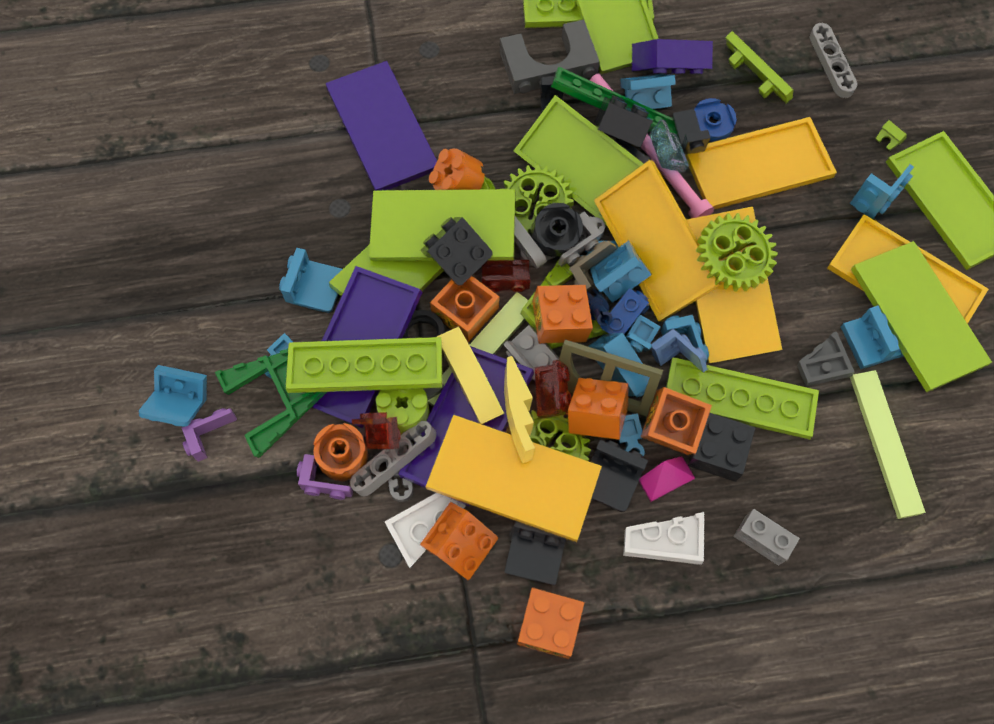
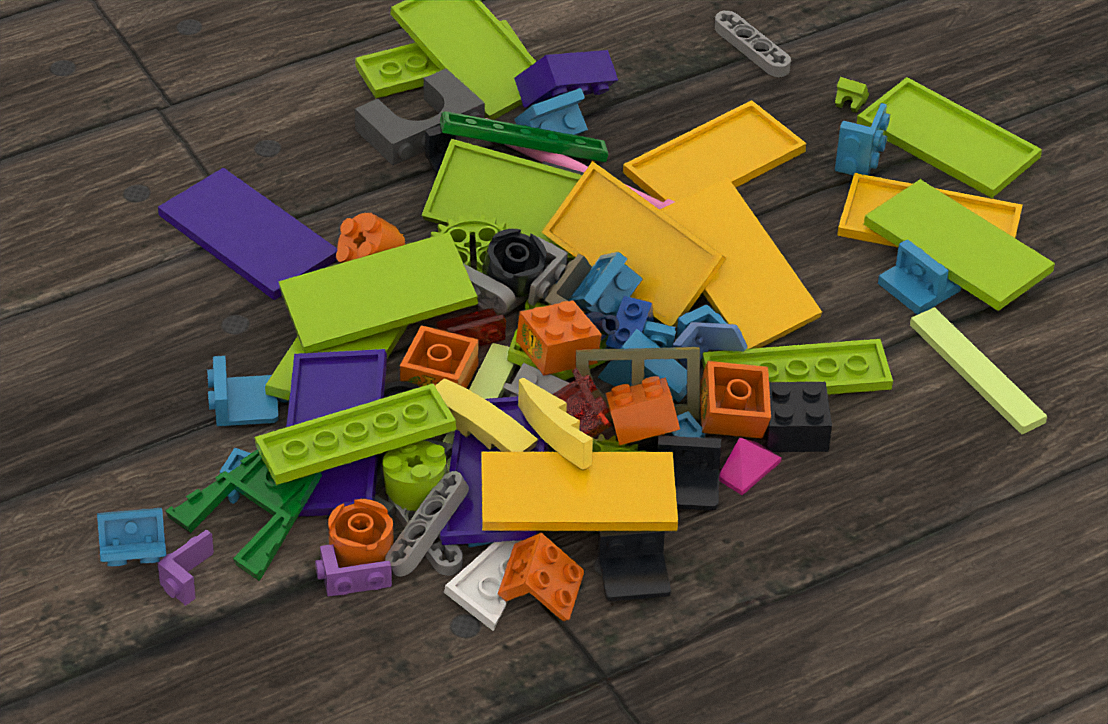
camera: 20 degrees left, 25 degrees down
(380, 430) = (401, 491): clear red bracket -> none
(457, 249) = (410, 301): black bracket -> none
(550, 623) = (683, 623): orange brick -> none
(623, 121) = (543, 140): black brick -> none
(668, 148) = (596, 150): clear light blue bracket -> none
(668, 540) = (777, 519): white wing -> none
(689, 132) = (623, 146): black bracket -> none
(725, 114) = (653, 133): blue plate -> none
(748, 271) = (729, 220): lime gear -> none
(766, 537) = (884, 481): light grey brick -> none
(771, 80) = (689, 75): lime hinge -> none
(826, 362) = (877, 315): dark grey wing -> none

